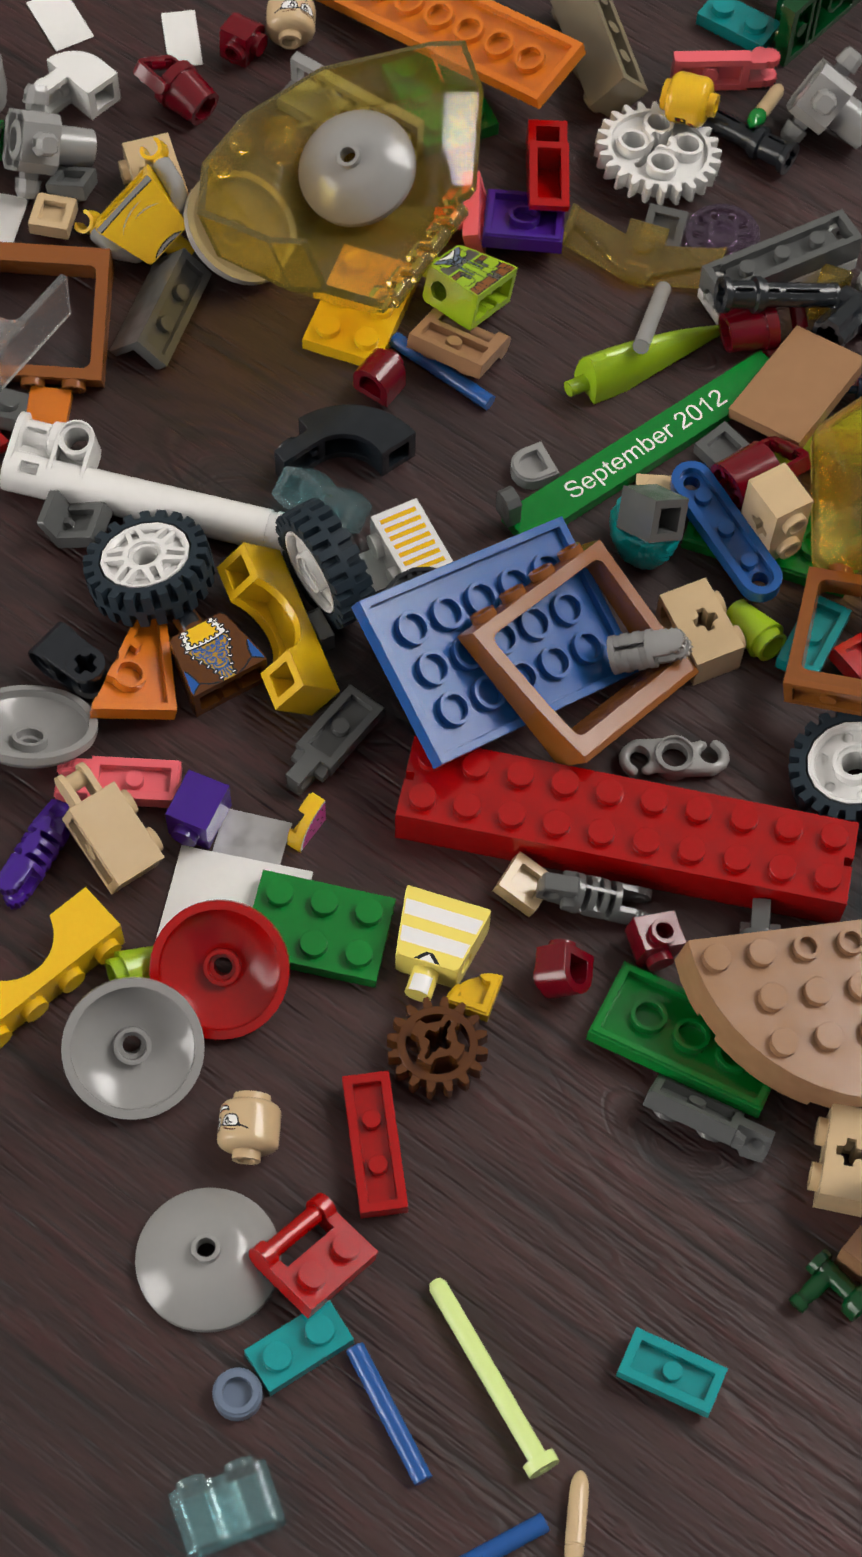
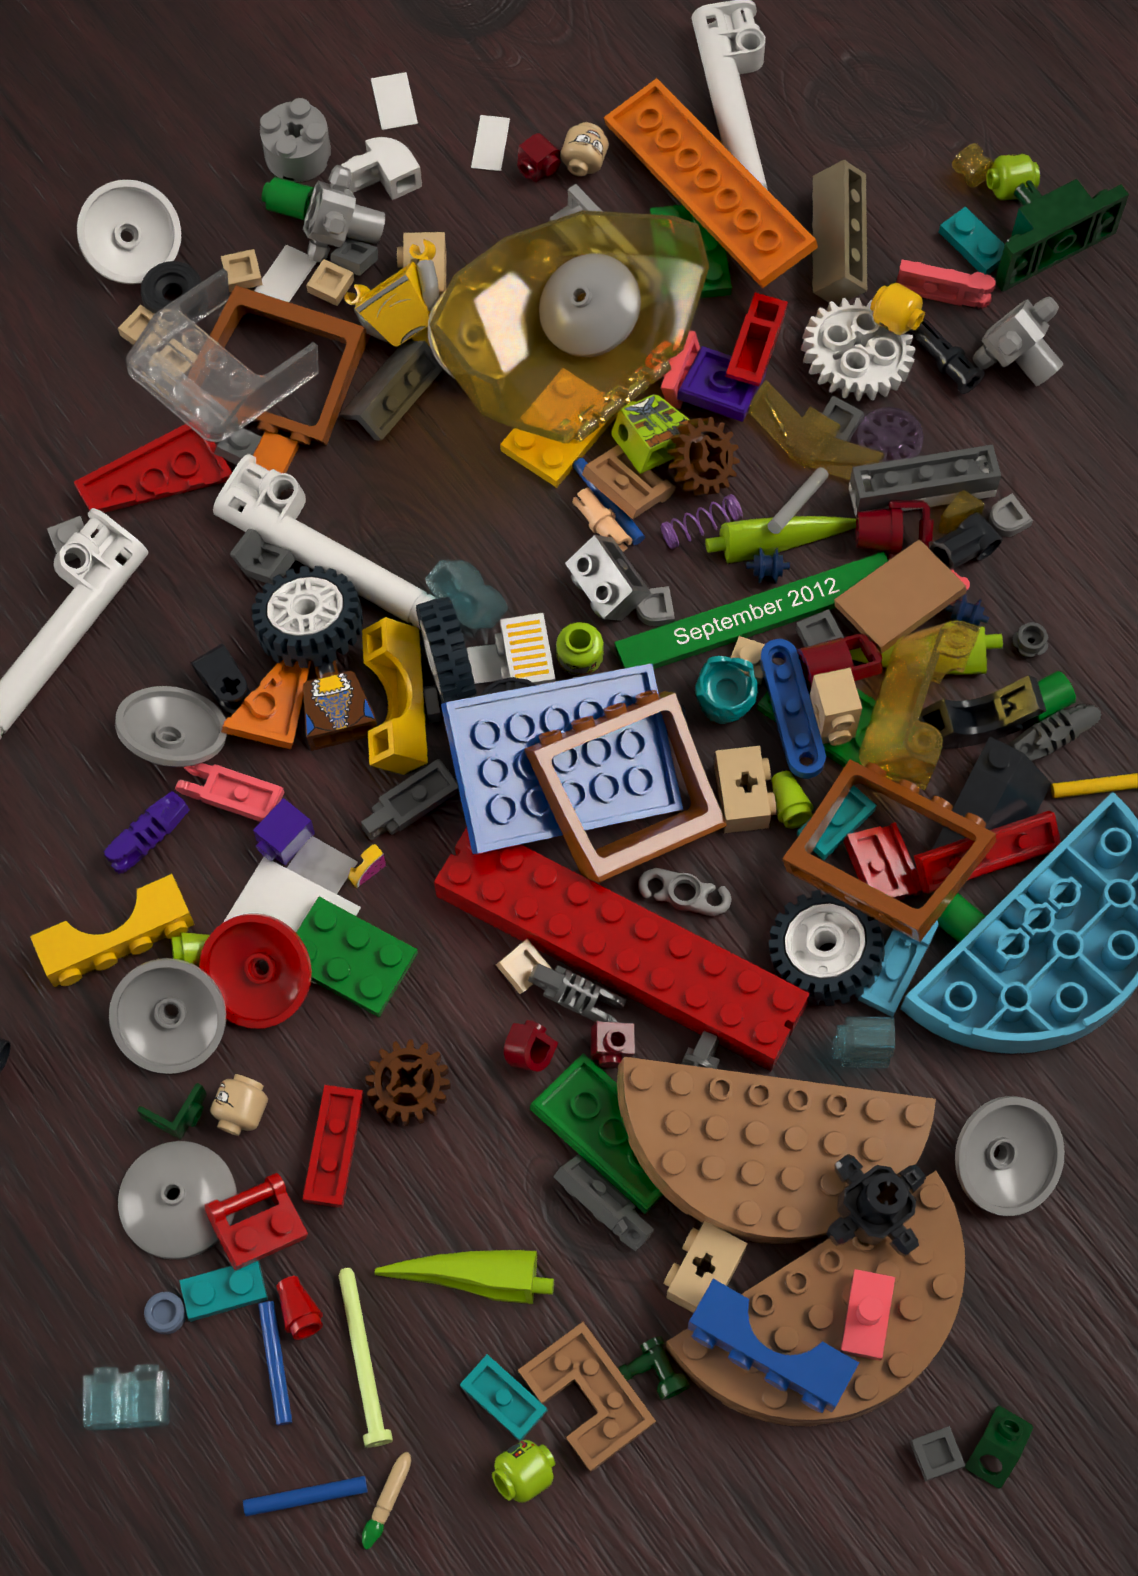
camera: 20 degrees right, 5 degrees up
(108, 829) = (206, 830): tan brick -> none
(175, 1176) = (187, 1116): none -> dark green bracket
(179, 87) = (470, 191): dark red piece -> none
(348, 432) = (506, 537): black arch -> none
(381, 376) = (553, 495): dark red plate -> none
(398, 1342) = (299, 1310): none -> red cone
(437, 940) = (437, 994): light yellow torso -> none
(444, 391) = (600, 518): none -> light nougat pin
(468, 526) = (579, 649): none -> lime head
(473, 447) = (607, 578): none -> flat silver brick
(477, 994) = (455, 1047): yellow tile -> none
(509, 506) = (618, 639): dark grey piece -> none
(524, 381) = (670, 535): none -> medium lavender piece
(533, 296) = (703, 456): none -> reddish brown gear
(605, 1238) = (491, 1274): none -> lime piece
(642, 393) = (768, 565): none -> dark blue wheel
(646, 649) = (684, 796): light grey hinge -> none
(652, 513) = (728, 680): dark grey brick -> none
(725, 1449) = (523, 1471): none -> lime head
(749, 1303) = (619, 1410): none -> medium nougat plate
(759, 115) = (956, 336): tan piece -> none
(759, 294) = (889, 507): black pin -> none

